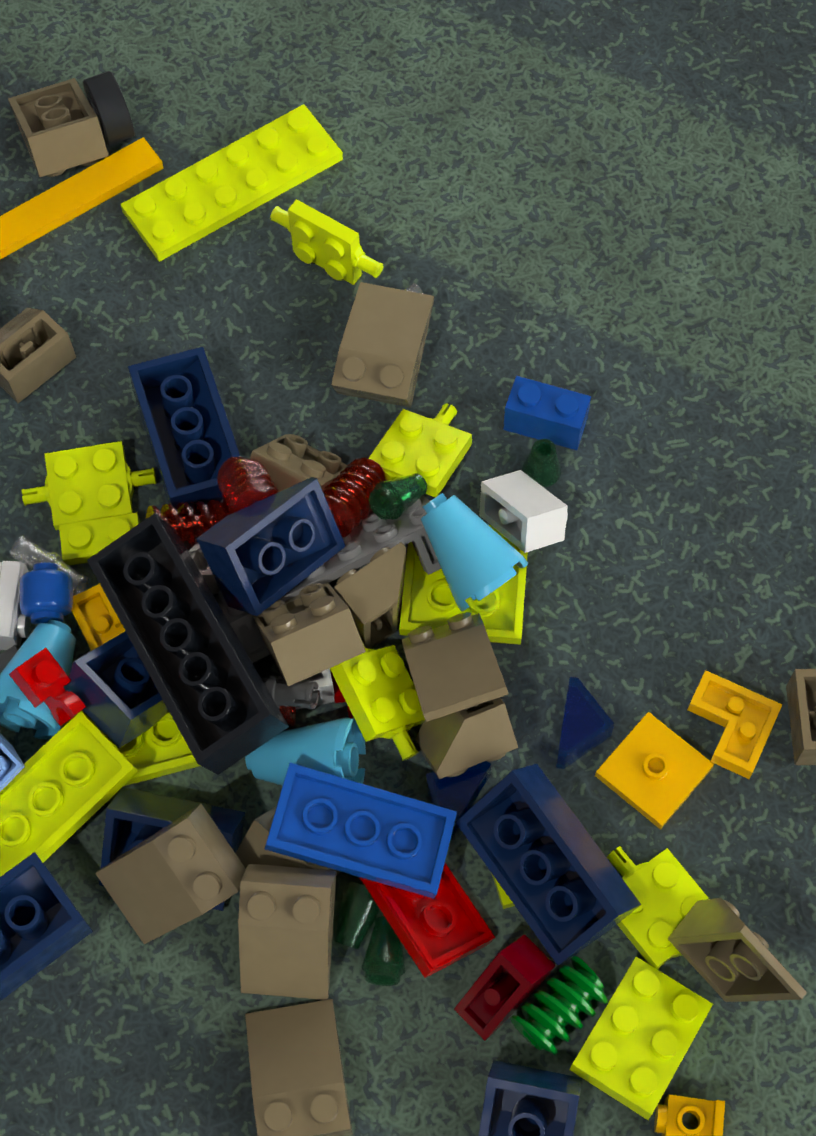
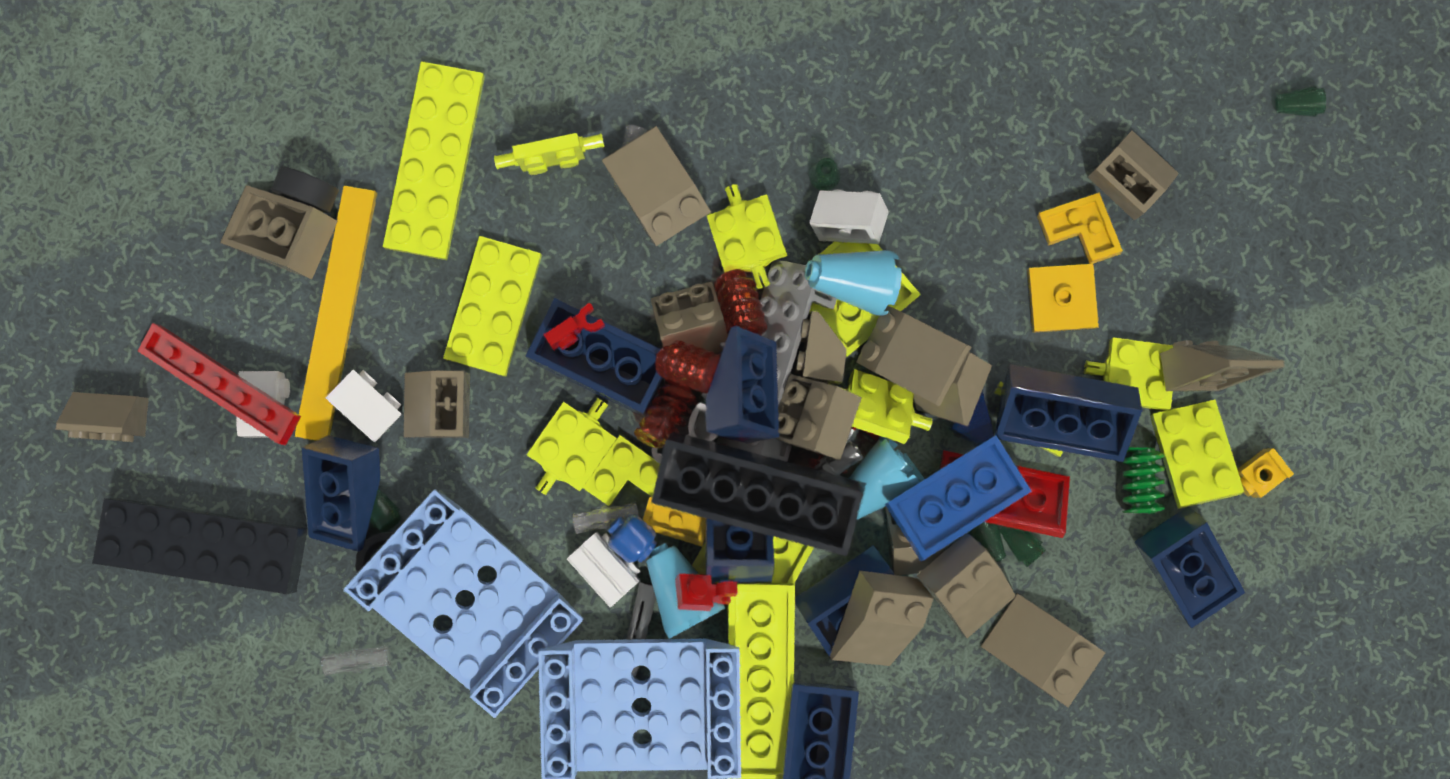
camera: 45 degrees left, 20 degrees up
(153, 323) = (492, 306): none -> neon yellow plate
(181, 371) = (565, 333): none -> red plate
(396, 495) = (772, 281): clear green cone -> none
(504, 986) = (1103, 497): dark red slope -> none
(546, 412) = (795, 136): blue brick -> none
(583, 724) = (1002, 313): clear blue slope -> none

